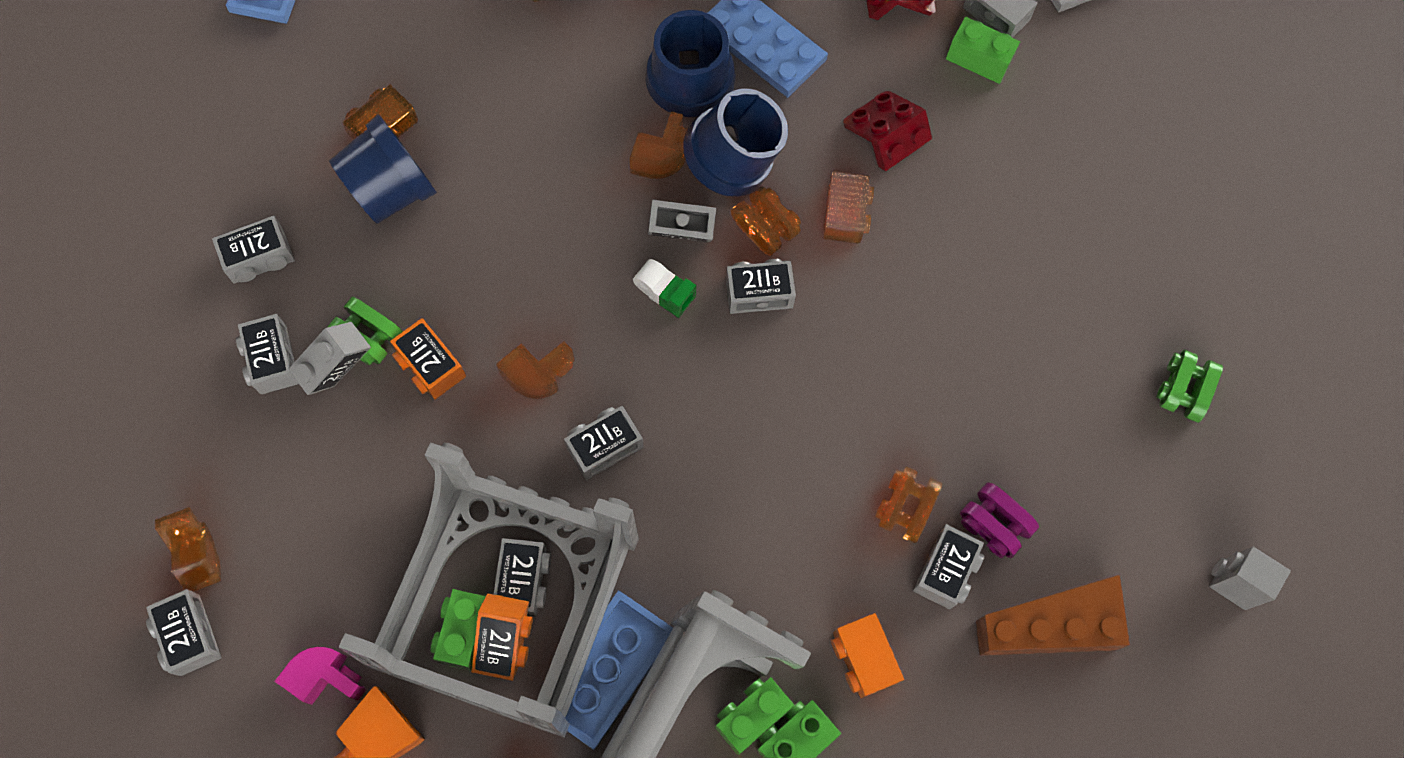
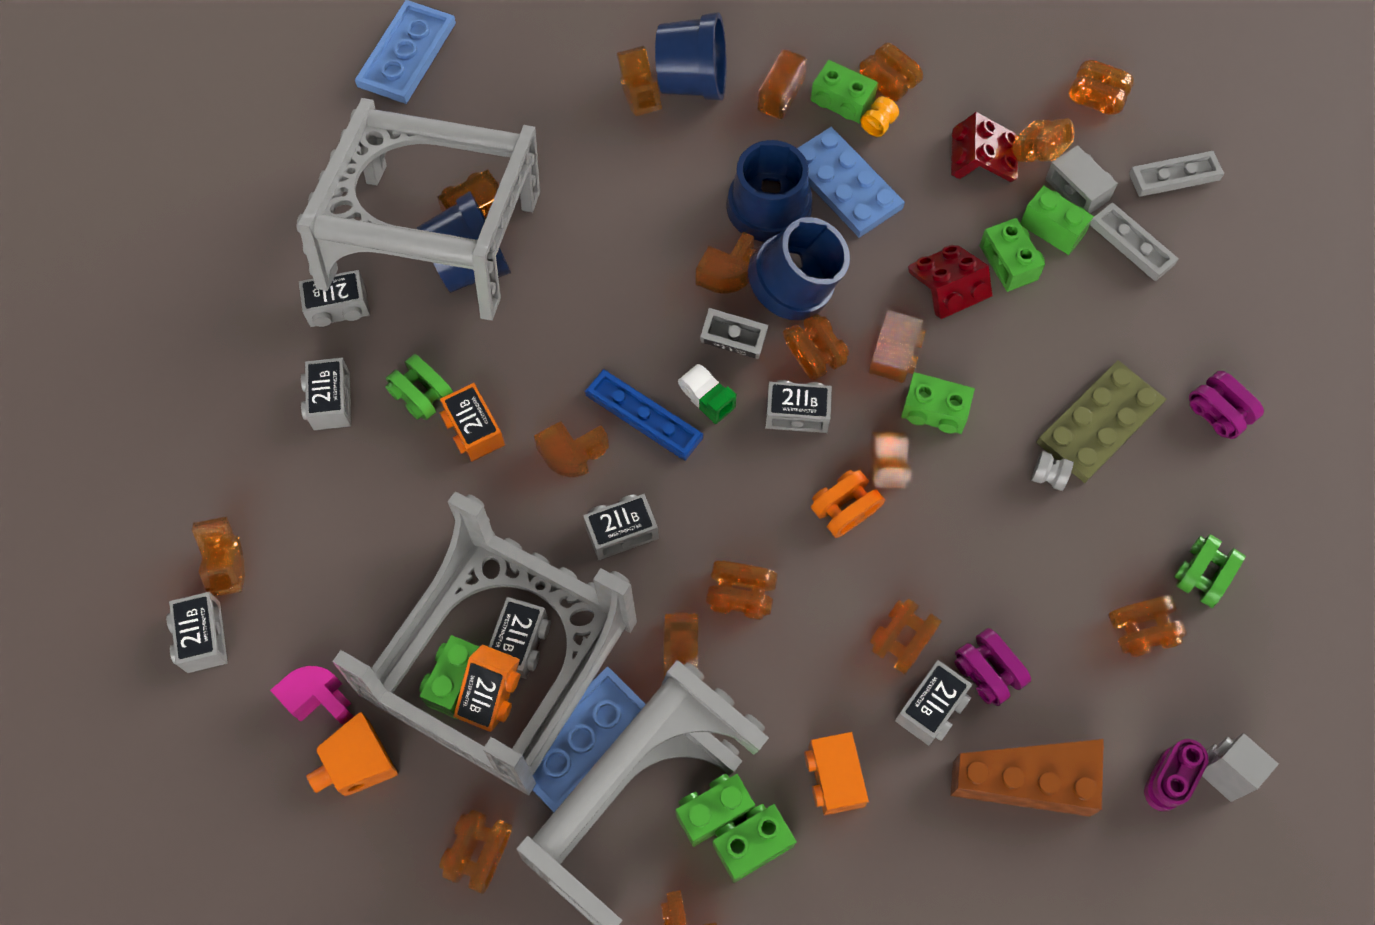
camera: 15 degrees right, 5 degrees down
(252, 88) = (363, 148): none -> light grey arch
(329, 358) = (381, 404): light grey brick -> none
(604, 320) = (644, 414): none -> blue tile
(689, 559) = (680, 639): none -> clear orange brick
(752, 499) = (751, 603): none -> clear orange brick
(808, 380) = (848, 486): none -> orange brick
(862, 327) = (890, 460): none -> clear orange brick
(898, 260) = (937, 403): none -> bright green brick
(945, 92) = (1012, 254): none -> bright green brick
(1023, 311) = (1053, 471): none -> light grey wheel
(1060, 251) = (1101, 420): none -> olive plate
(1062, 60) = (1134, 241): none -> light grey plate
(1135, 469) = (1138, 641): none -> clear orange brick
(1178, 215) = (1226, 405): none -> magenta brick
(1192, 595) = (1176, 775): none -> magenta brick

